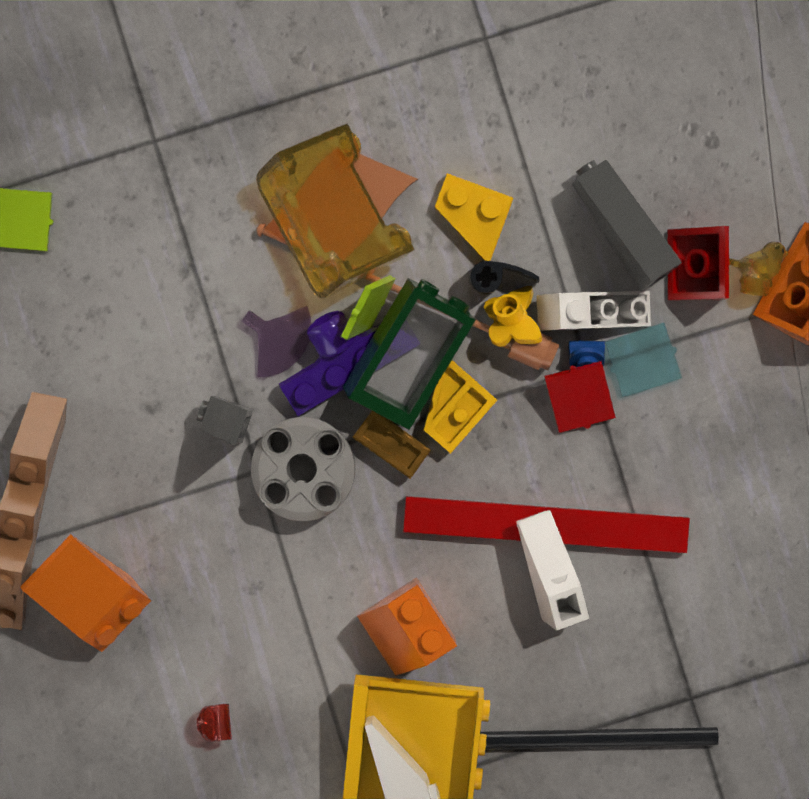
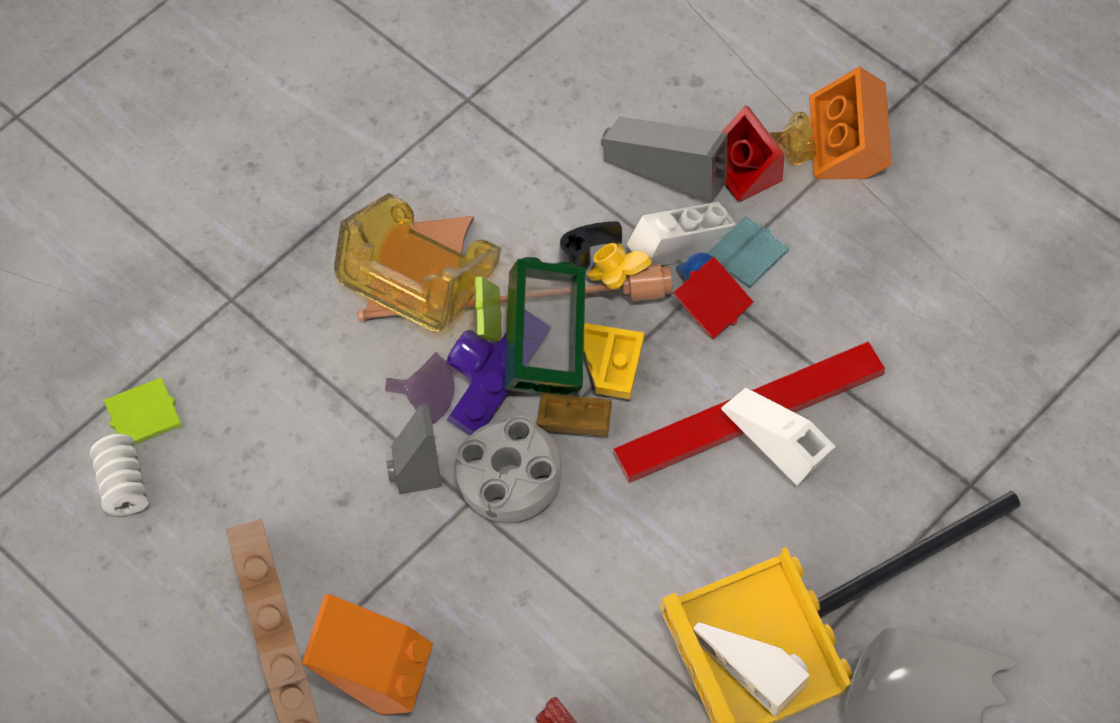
camera: 25 degrees left, 30 degrees down
(408, 629) = (682, 537): orange slope -> none
(474, 212) = (533, 215): yellow wing -> none

